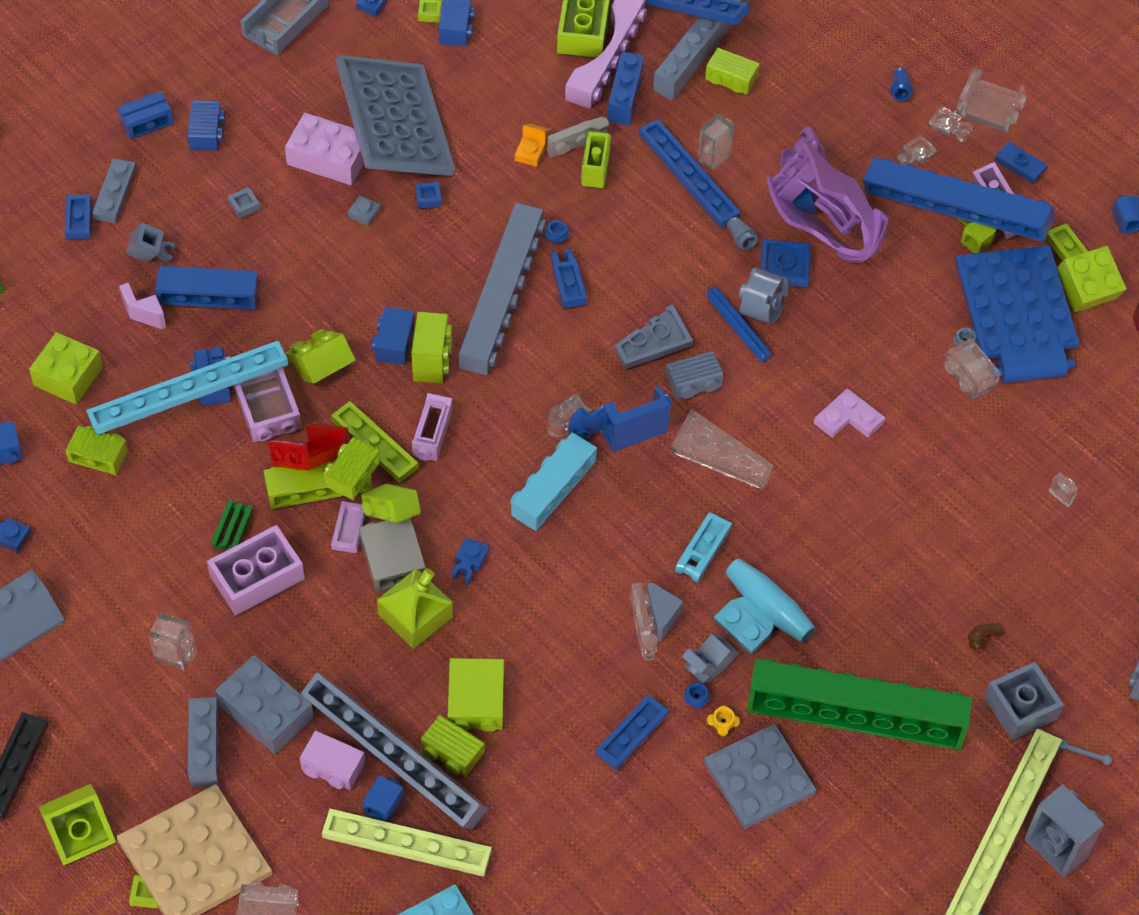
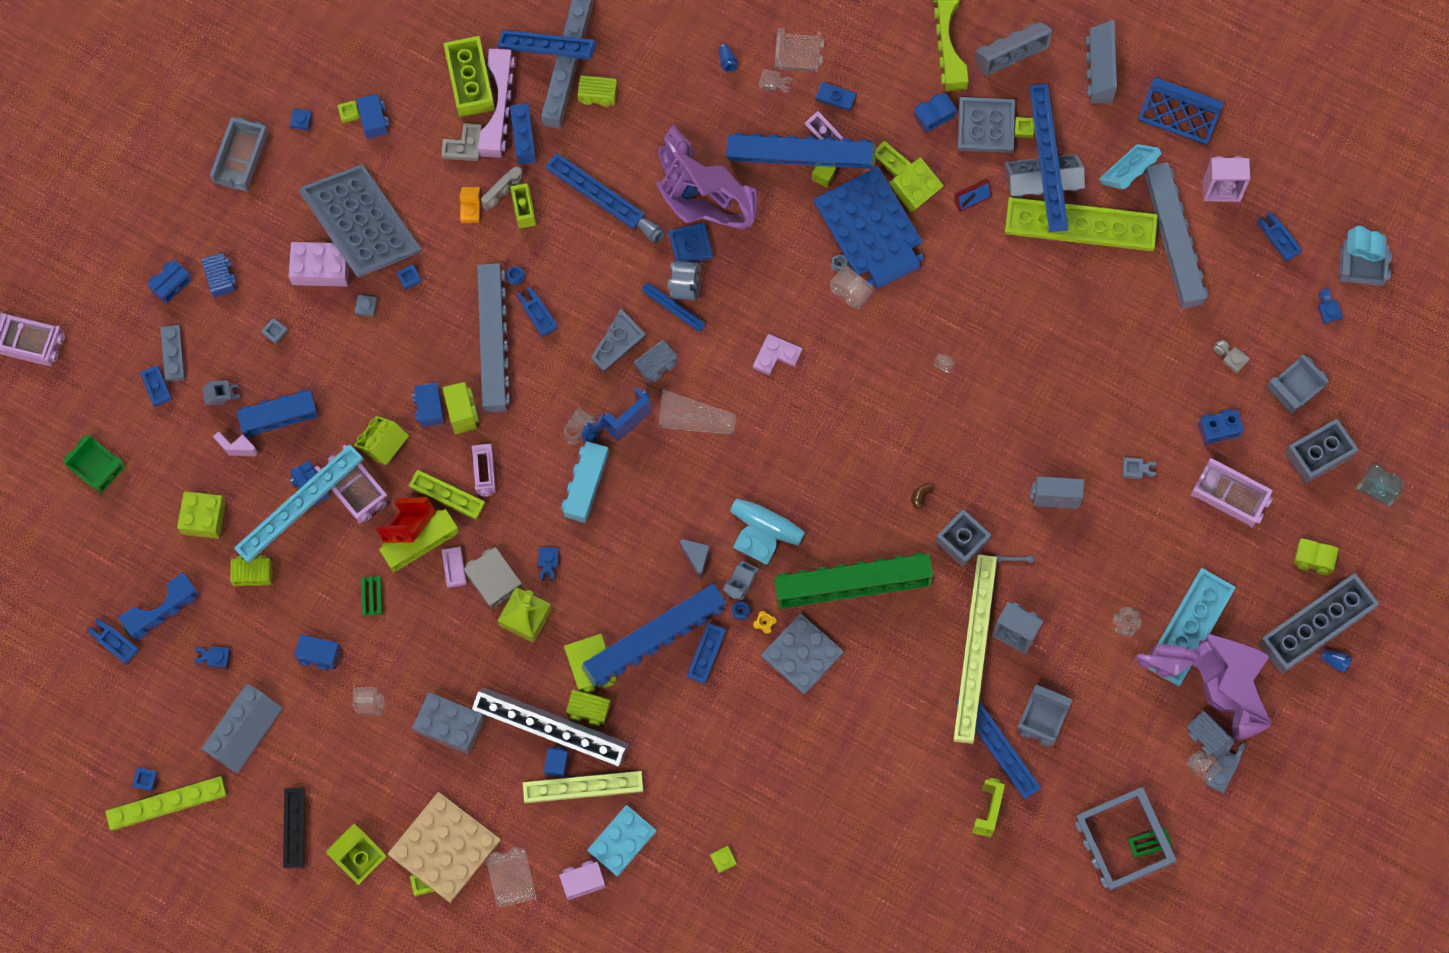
camera: 15 degrees left, 15 degrees up
(135, 567) = (317, 652): none -> blue brick
(203, 742) = (418, 765): sand blue brick -> none
(255, 570) = (403, 626): lavender brick -> none
(332, 761) = (511, 748): lavender brick -> none
(352, 468) = (442, 528): lime brick -> none
(391, 503) = (479, 543): lime brick -> none
(548, 84) = (466, 147): none -> light grey plate
(570, 683) = (654, 635): none -> blue brick
(643, 621) = (686, 568): clear plate -> none
(703, 546) = (708, 495): medium azure plate -> none
(715, 141) = (607, 160): clear brick -> none
(916, 150) = (757, 114): clear plate -> none

